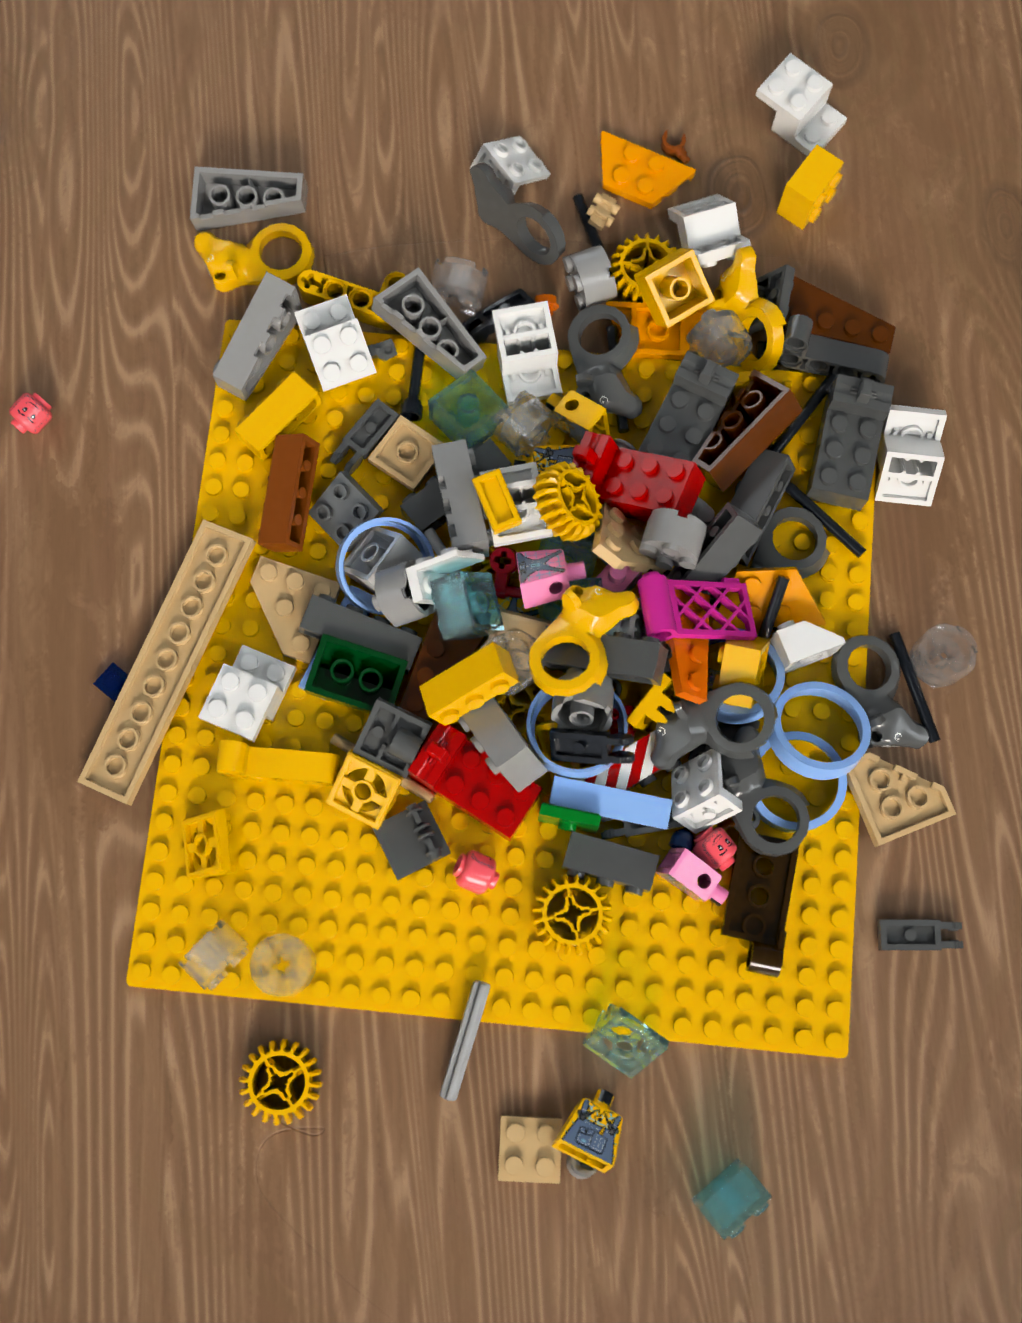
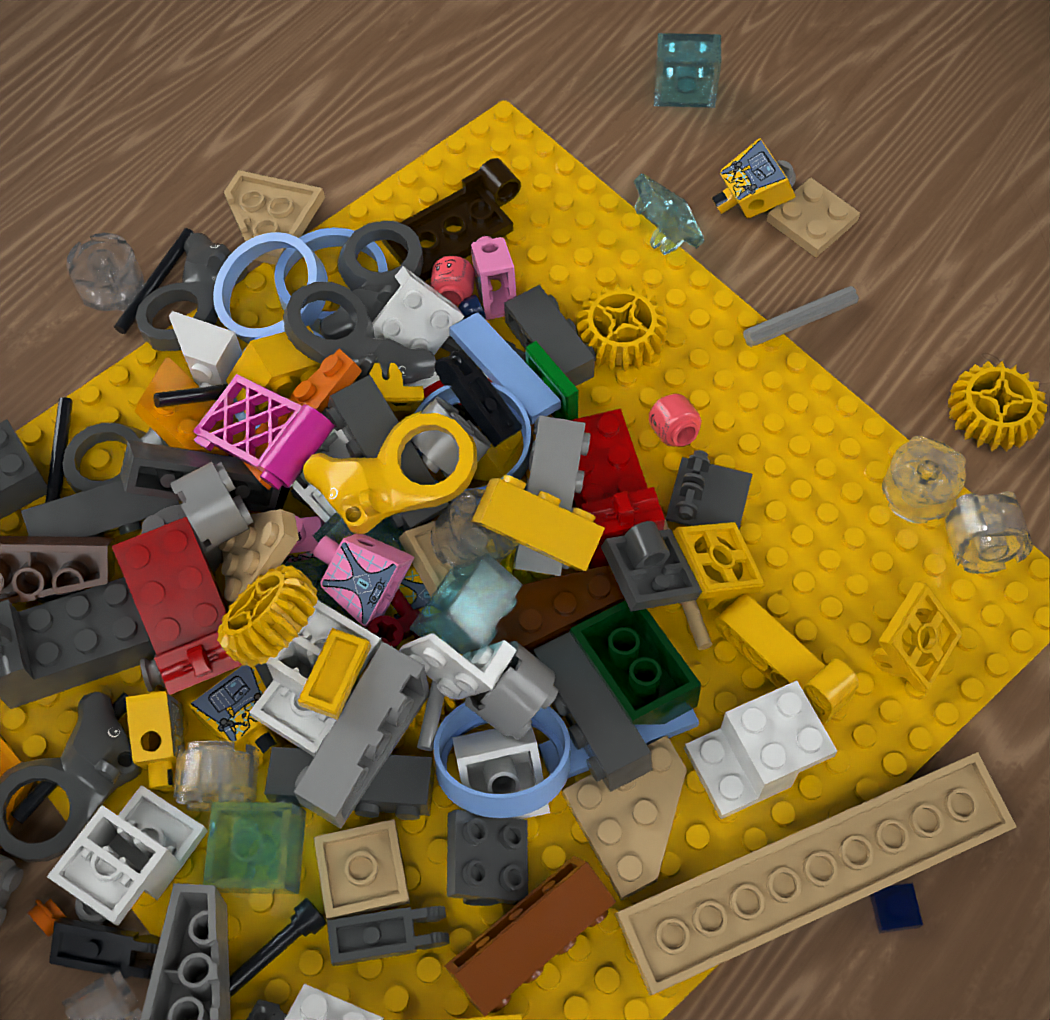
camera: 135 degrees left, 15 degrees down
(915, 935) = (363, 125): dark grey hinge -> none

